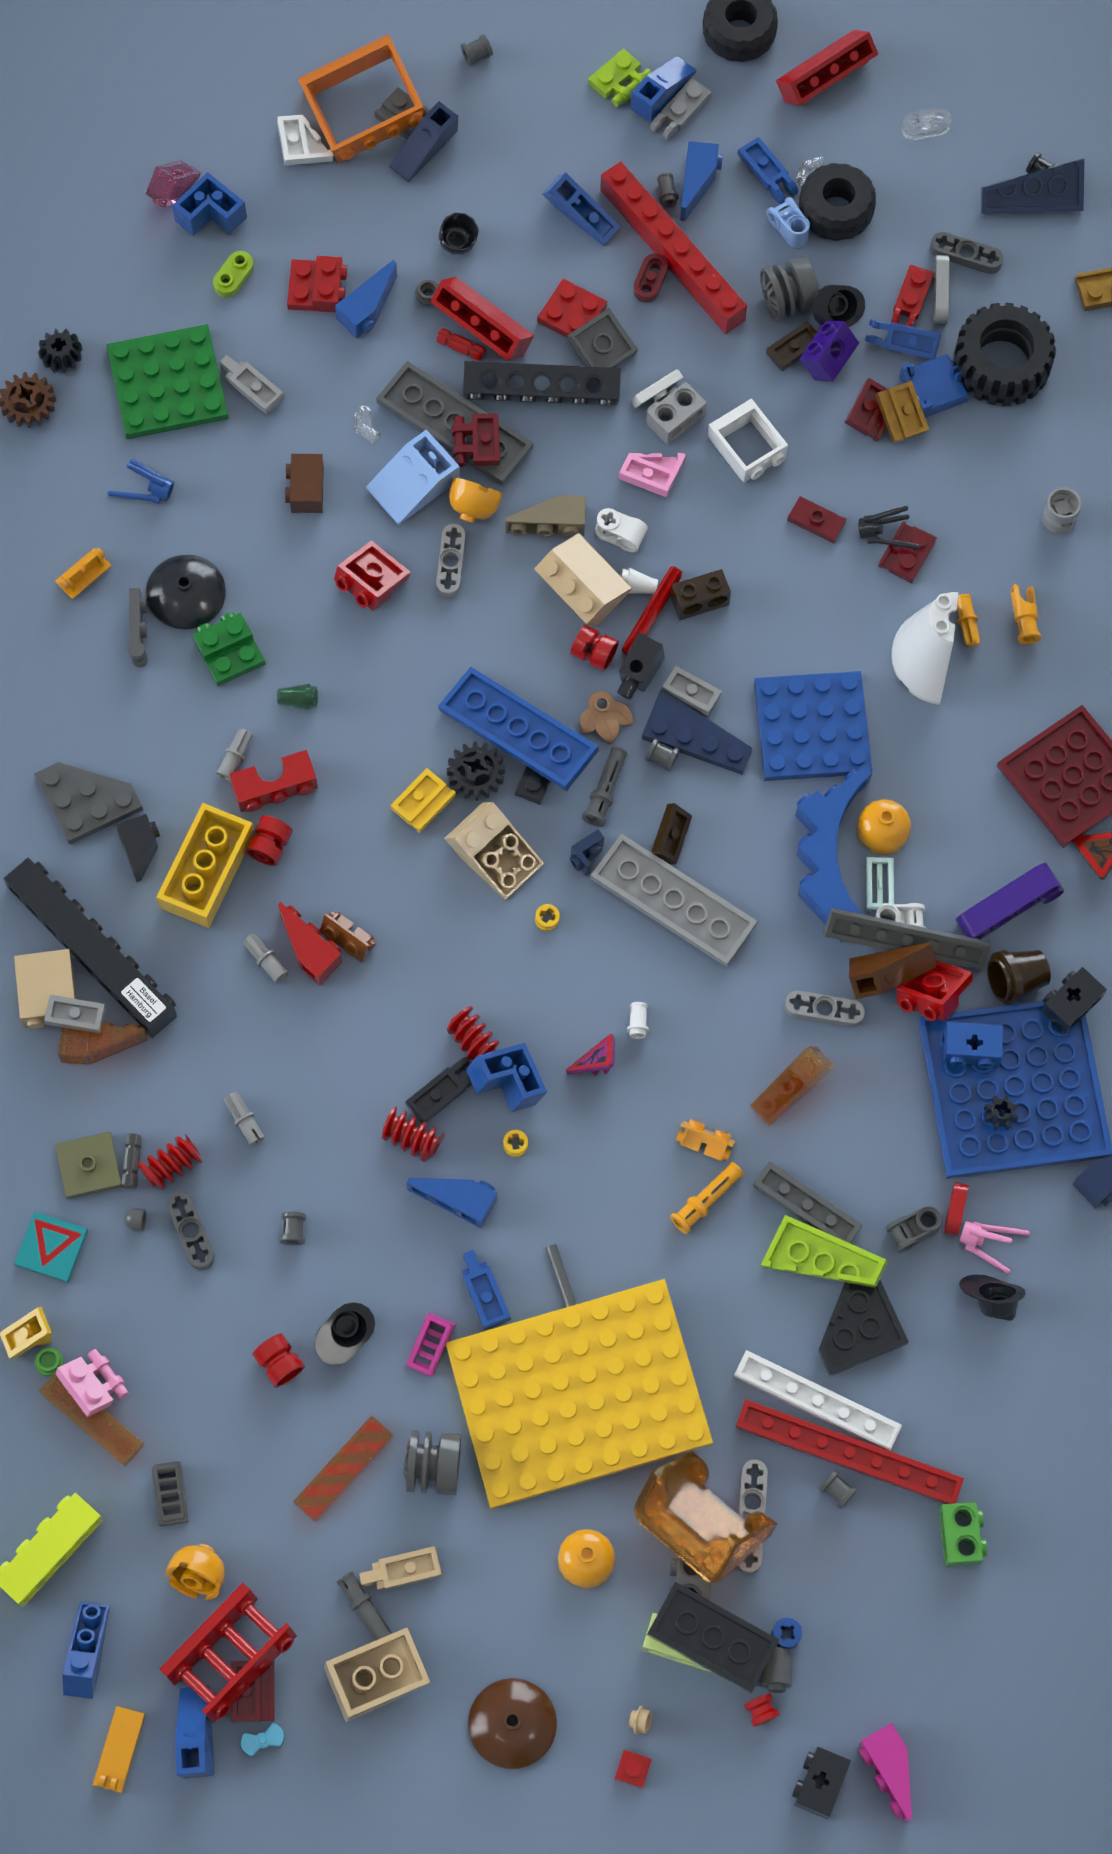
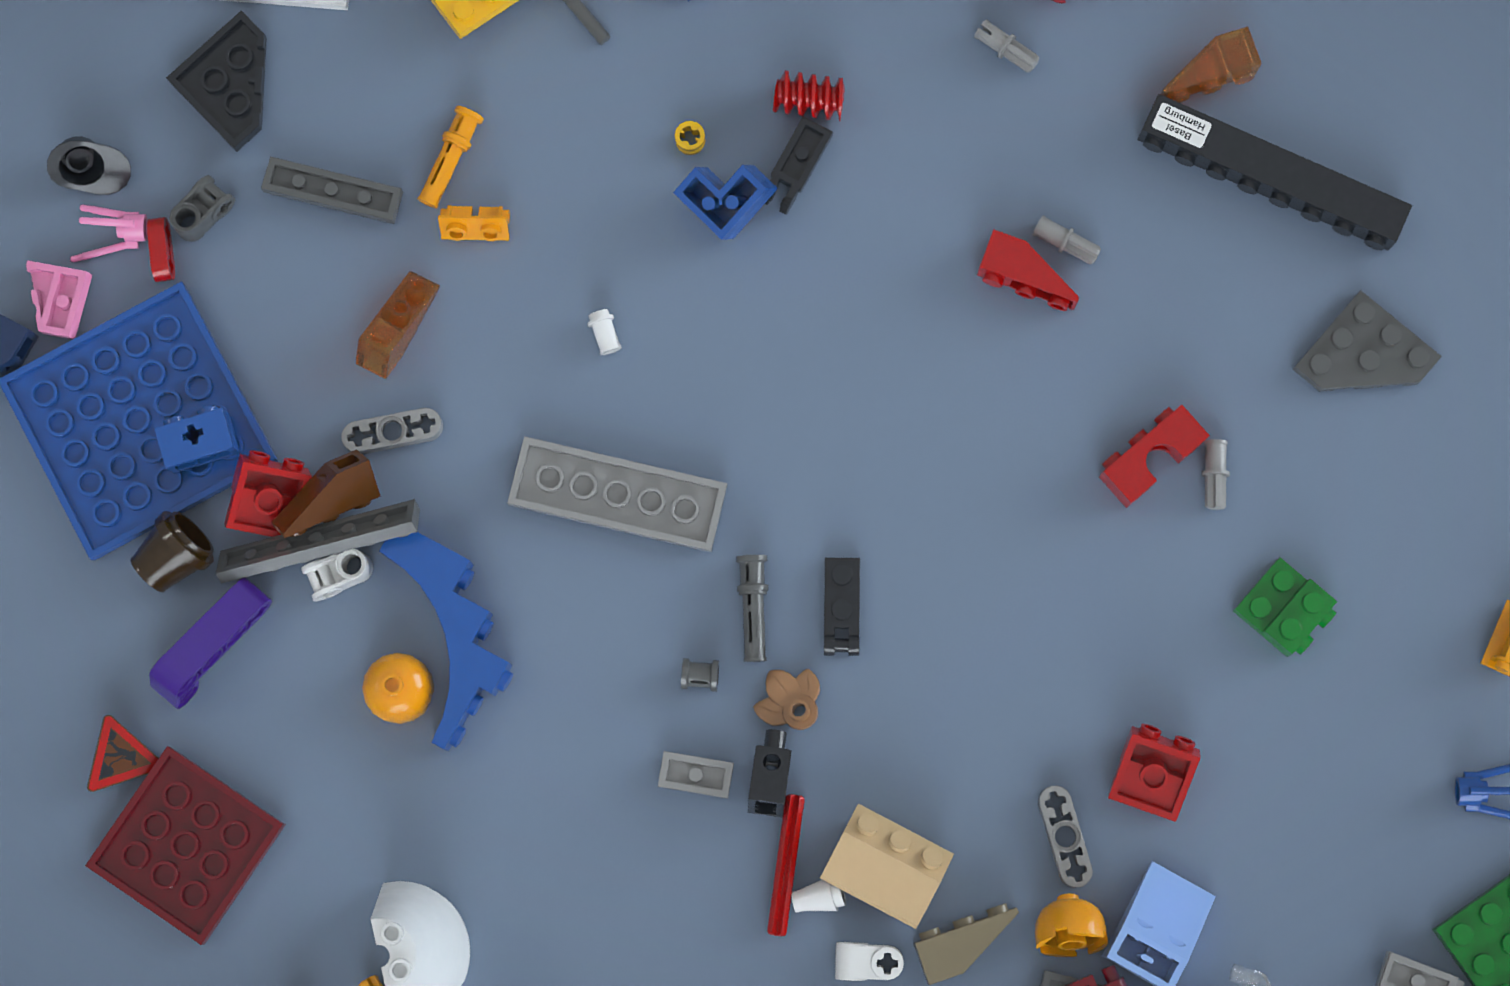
camera: 165 degrees right, 10 degrees up
(38, 978) = (1299, 104): tan brick -> none
(75, 1014) = (1250, 71): light grey plate -> none
(137, 627) = (1410, 588): dark grey plate -> none
(139, 843) = (1276, 315): black slope -> none
(188, 605) = (1350, 670): black dish -> none
(205, 865) = (1185, 315): yellow brick -> none
(268, 843) = (1125, 377): red wheel -> none
(298, 696) = (1172, 577): clear green cone -> none
(306, 483) = (1293, 869): reddish brown brick -> none
(337, 928) = (996, 305): dark orange hinge -> none
(423, 800) = (965, 503): yellow plate -> none
(458, 1196) = (727, 48): blue slope -> none
(467, 765) = (935, 563): black gear -> none
(470, 1034) = (785, 234): red piece -> none
(494, 849) = (856, 474): tan slope -> none
(518, 728) = (887, 633): blue plate -> none
(542, 910) = (752, 410): yellow bush -> none
(587, 847) = (743, 519): dark blue bracket -> none
(598, 1058) = (634, 265): piece -> none
(601, 654) = (837, 781): red wheel -> none
(671, 833) = (650, 575): dark brown plate -> none
(694, 735) = (678, 720): dark blue wing -> none
(700, 594) = (732, 908): dark brown brick -> none
(812, 725) = (530, 790): blue plate -> none
(814, 1253) = (304, 136): lime wing -> none
(890, 882) = (388, 640): light aqua tile -> none
(1008, 1109) = (132, 362): black gear -> none
(1047, 1202) = (58, 298): none -> bright pink wing
(1067, 1014) = (98, 522): black brick -> none

